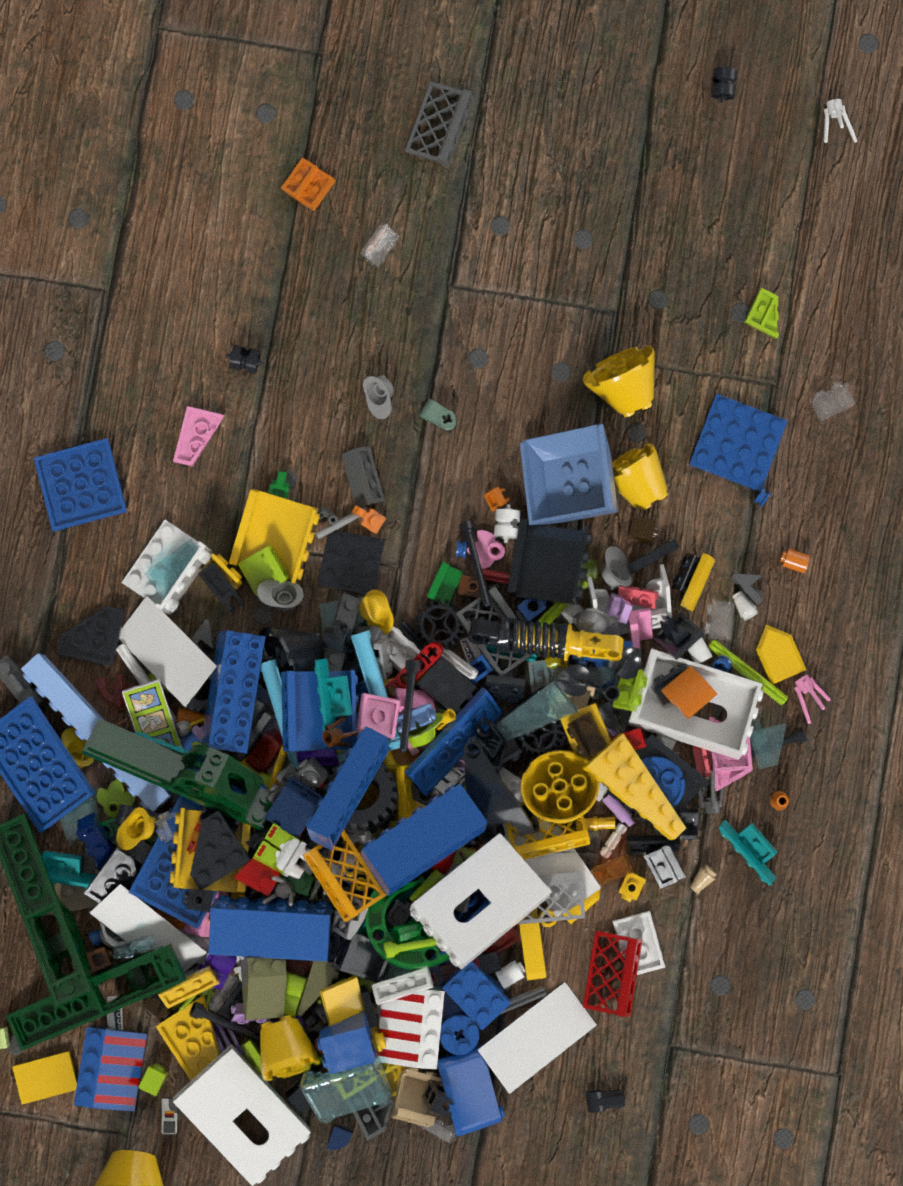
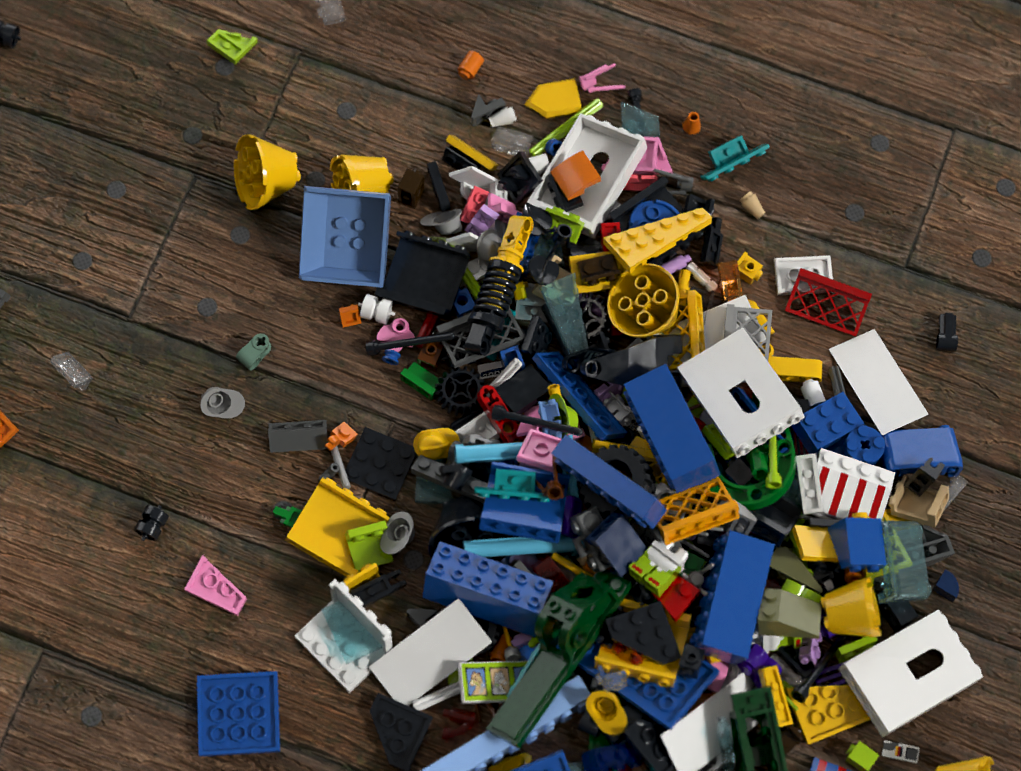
camera: 85 degrees left, 15 degrees down
(114, 795) = (568, 739): lime plate -> none
(664, 865) = (734, 234): plate -> none
(738, 442) = (347, 93): blue plate -> none
(762, 497) = (404, 81): blue bush -> none

